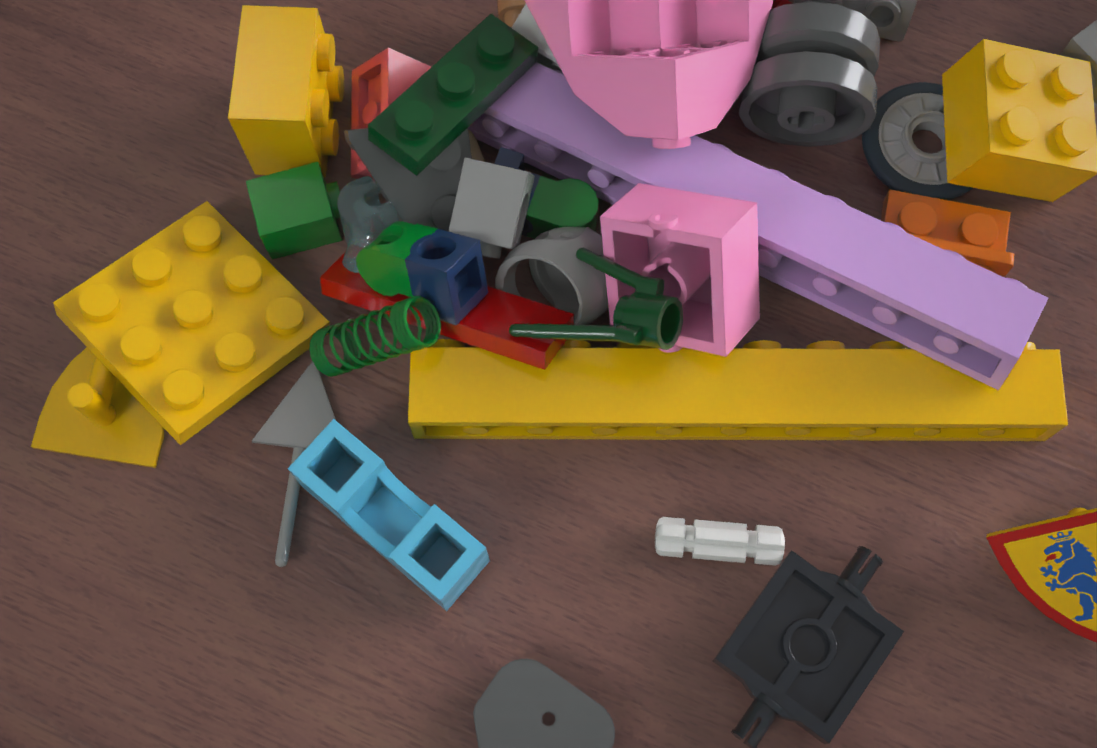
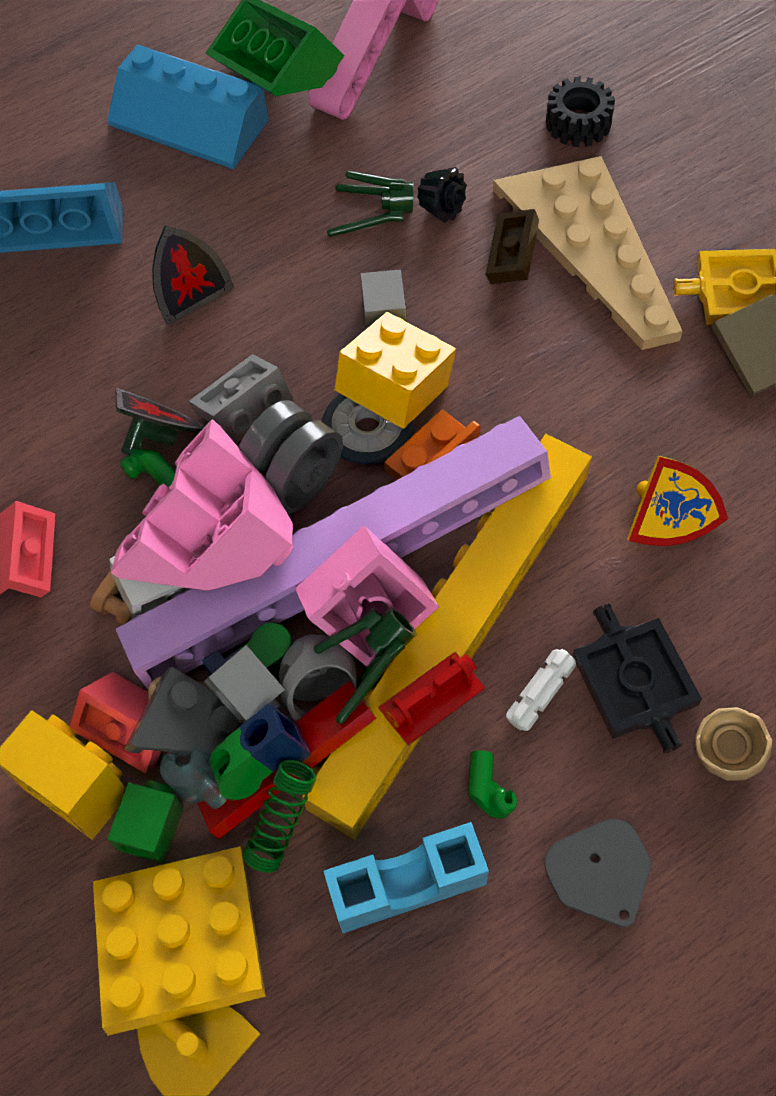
camera: 55 degrees left, 10 degrees down
(295, 425) = (298, 907): light grey piece -> none
(452, 94) = (152, 664): dark green plate -> none
(554, 546) = (484, 790): none -> green arm
(609, 416) = (432, 697): none -> red hinge

